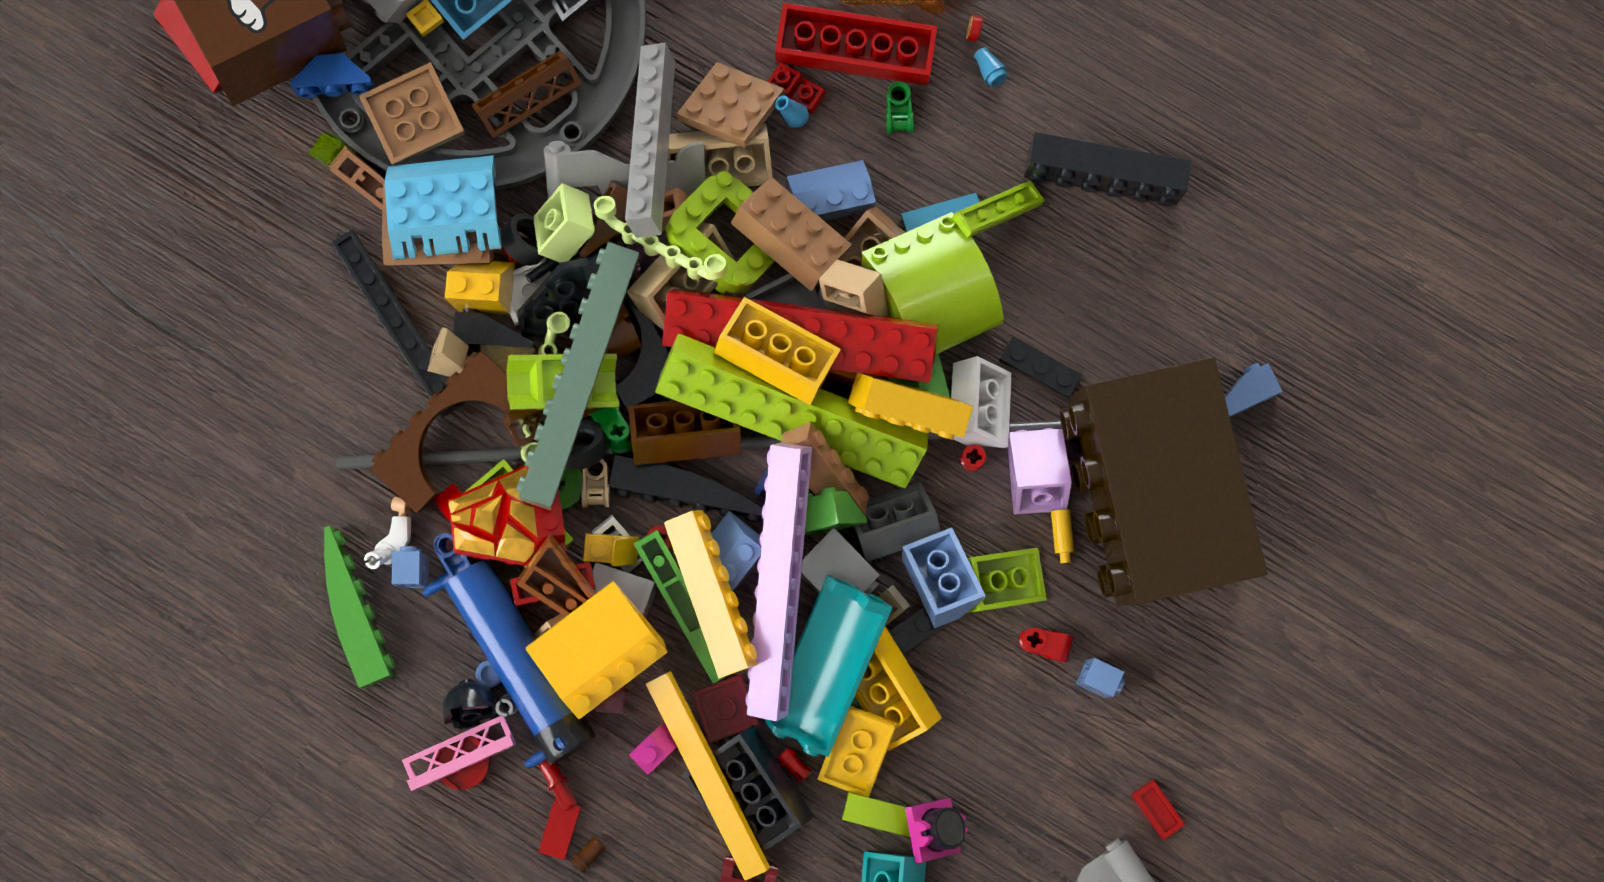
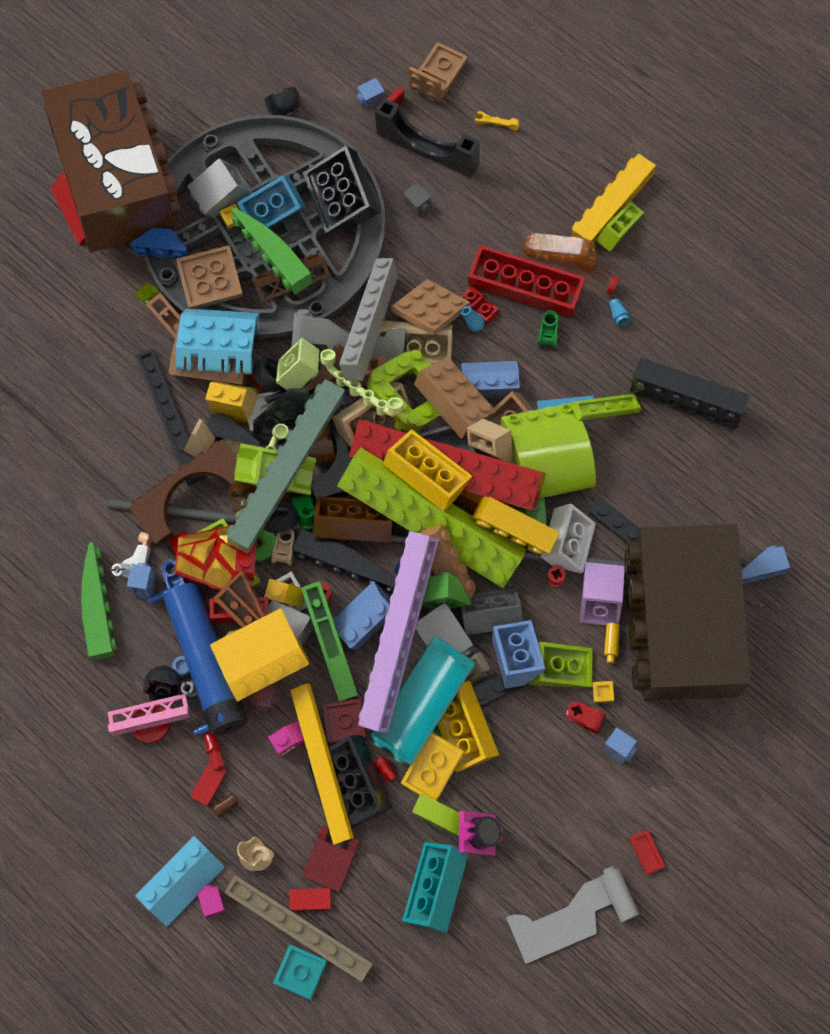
camera: 20 degrees right, 10 degrees down
(498, 65) = (274, 252): none -> bright green slope
(711, 593) = (349, 632): yellow brick -> none
(1063, 605) = (603, 692): none -> yellow plate

